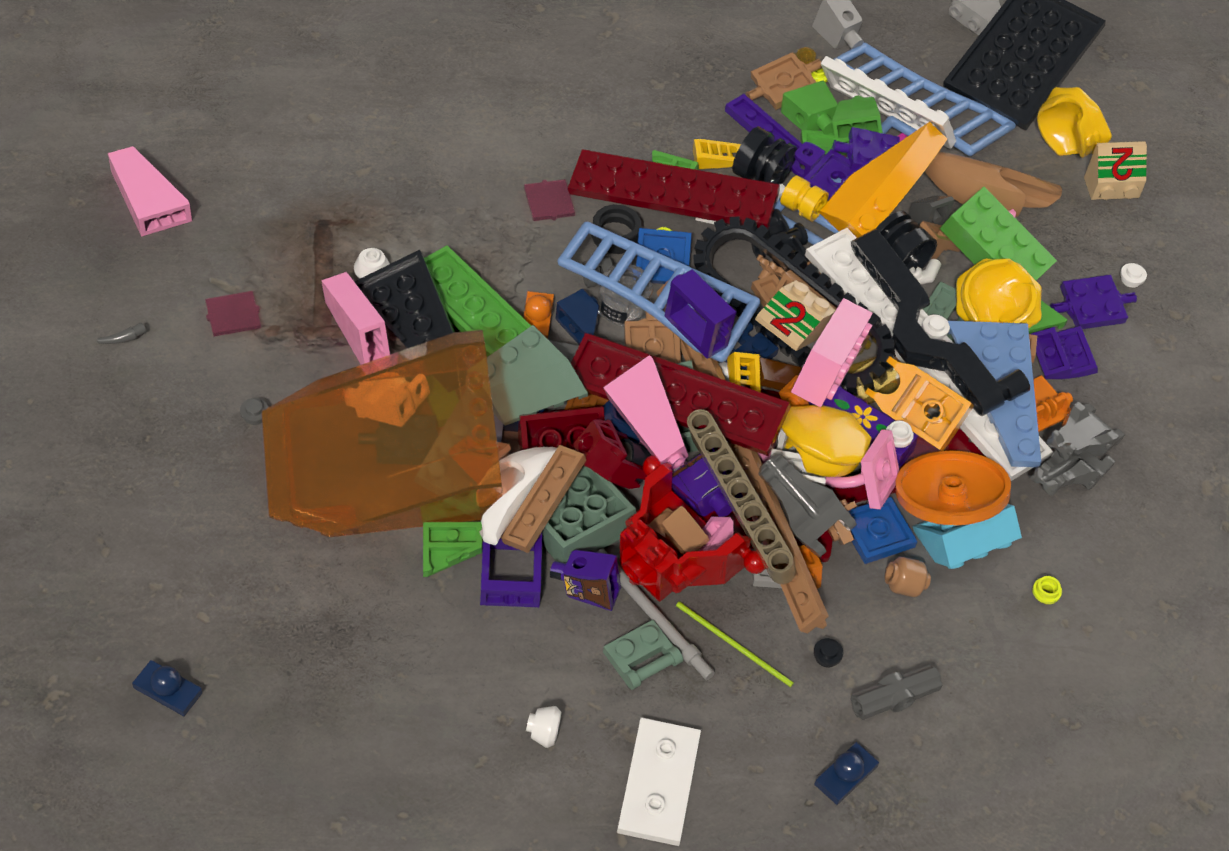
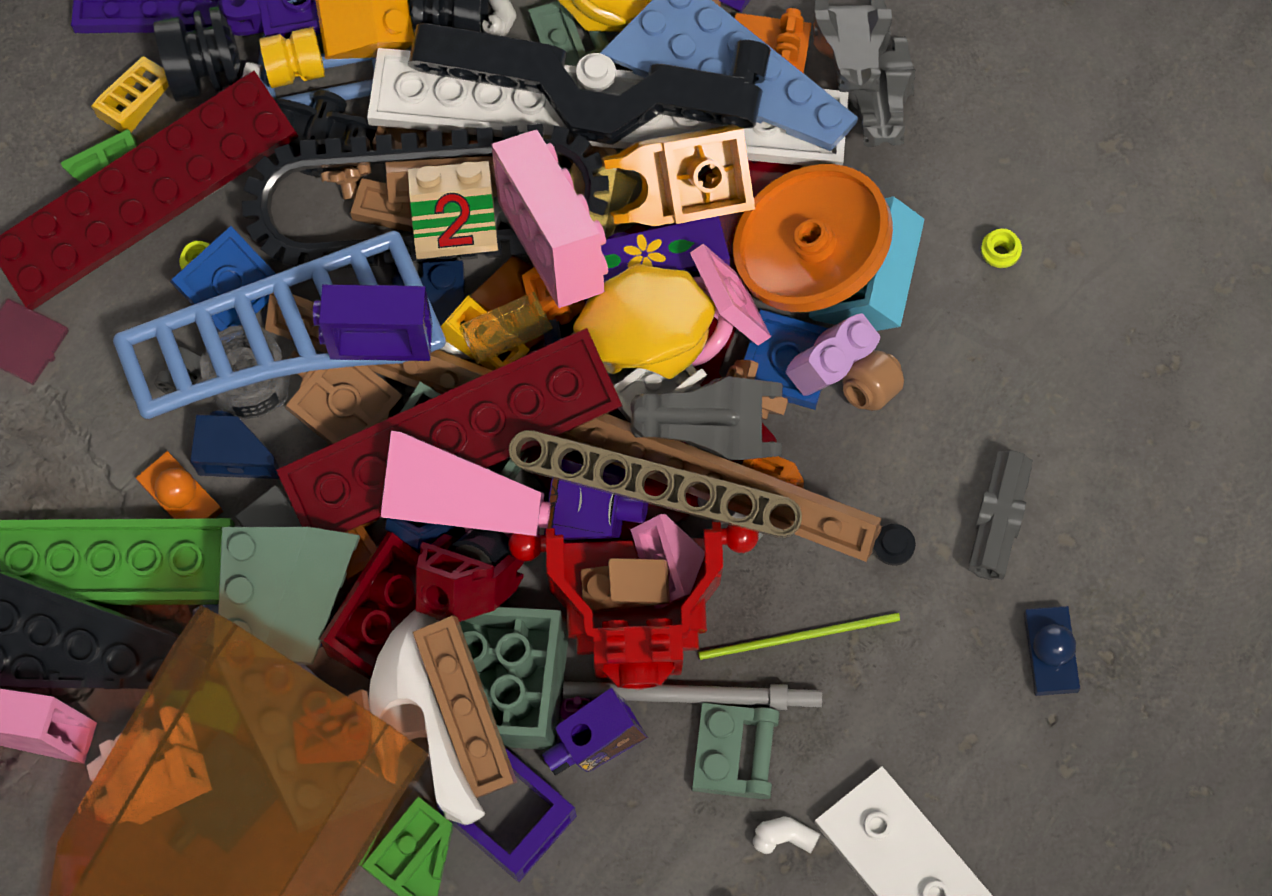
camera: 40 degrees left, 15 degrees up
(618, 214) = (127, 275): black tyre -> none
(624, 709) = (784, 830): none -> white arm
(759, 379) = (505, 327): none -> clear yellow plate
(894, 538) = (833, 354): none -> lavender brick
(901, 433) = (706, 232): white plate -> none

